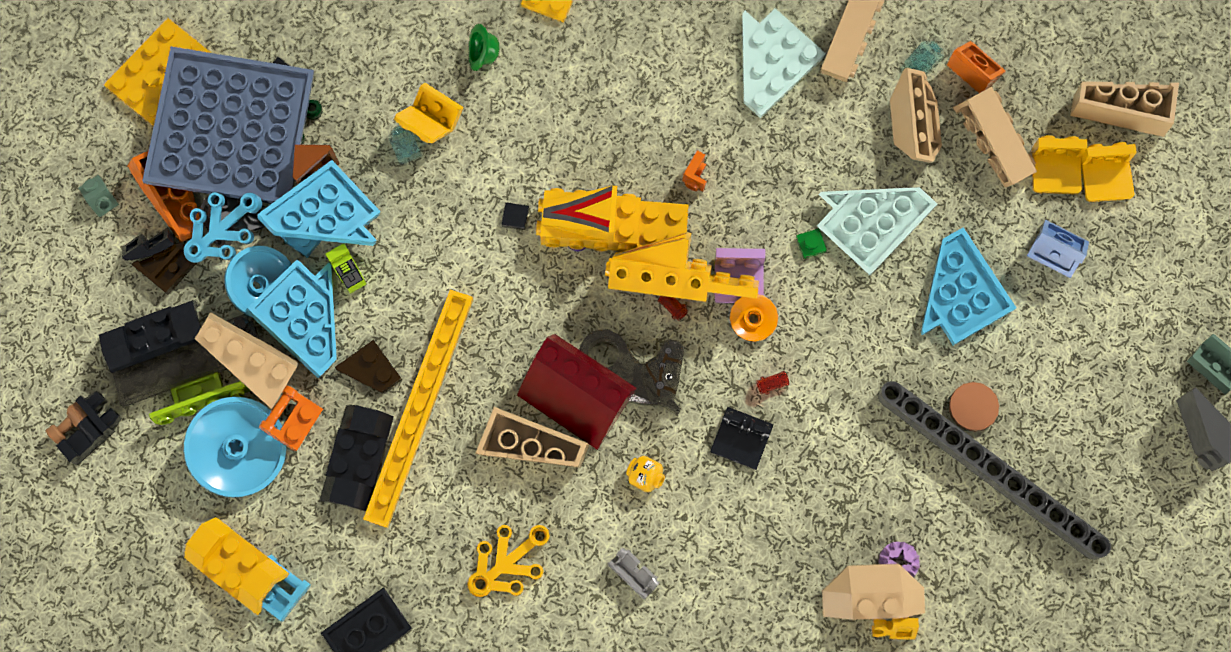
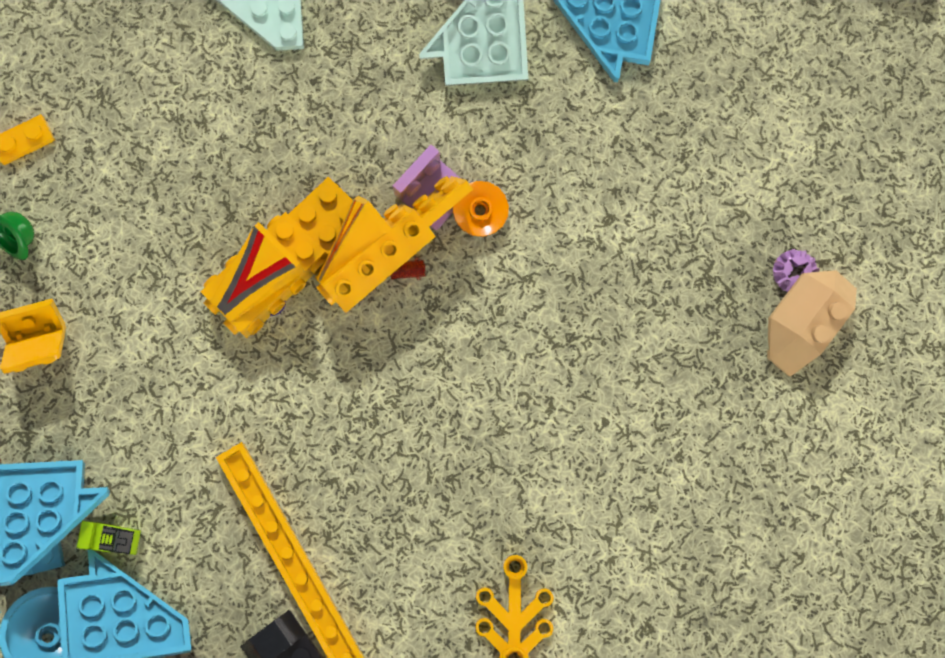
camera: 55 degrees left, 5 degrees up
(370, 368) = (224, 593): dark brown wing -> none
(404, 145) = (38, 384): clear light blue bracket -> none
(515, 216) = (199, 338): black tile -> none
(524, 440) = (416, 508): tan wedge -> none
(575, 390) = (412, 422): dark red slope -> none
(641, 580) = (610, 512): light grey hinge -> none
(645, 473) = (540, 423): yellow head -> none
(655, 380) = (443, 365): clear smoke animal -> none
(695, 167) = (304, 150): orange bracket -> none
(741, 438) = (577, 311): black hinge -> none
(772, 382) = (551, 243): clear red pin -> none
(811, 243) = (456, 103): green plate -> none
(897, 628) = (854, 324): yellow plate -> none
(973, 406) = (715, 94): nougat tile -> none
(1004, 471) = (794, 119): dark grey beam -> none

